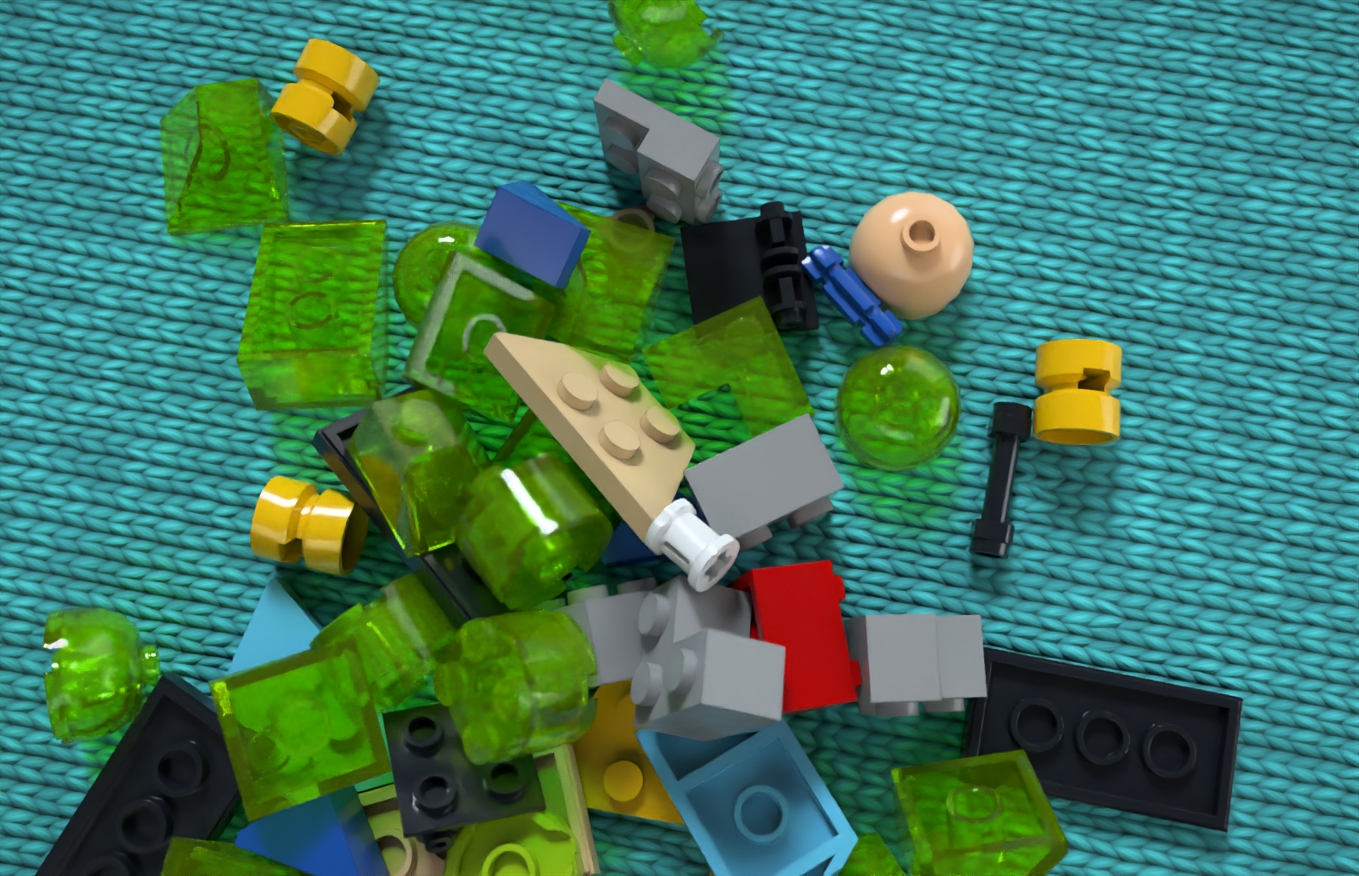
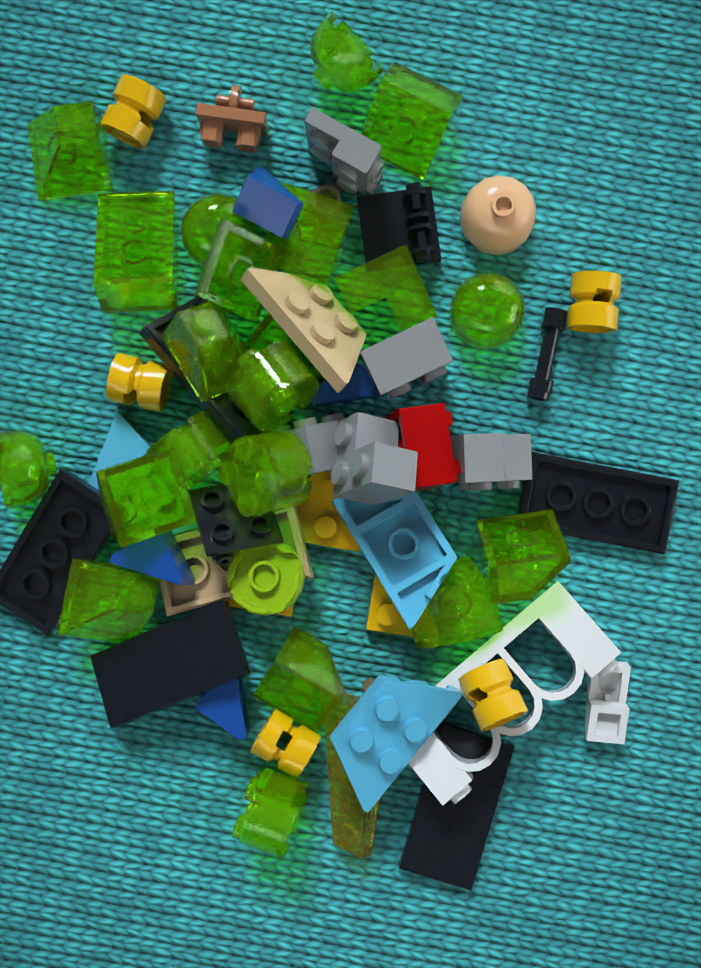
camera: 10 degrees left, 10 degrees up
(485, 104) = (233, 115): none -> nougat hips
(692, 545) = (365, 394): white bush -> none
(767, 107) = (410, 118): none -> clear neon green slope
(851, 297) = (461, 242): blue axle -> none

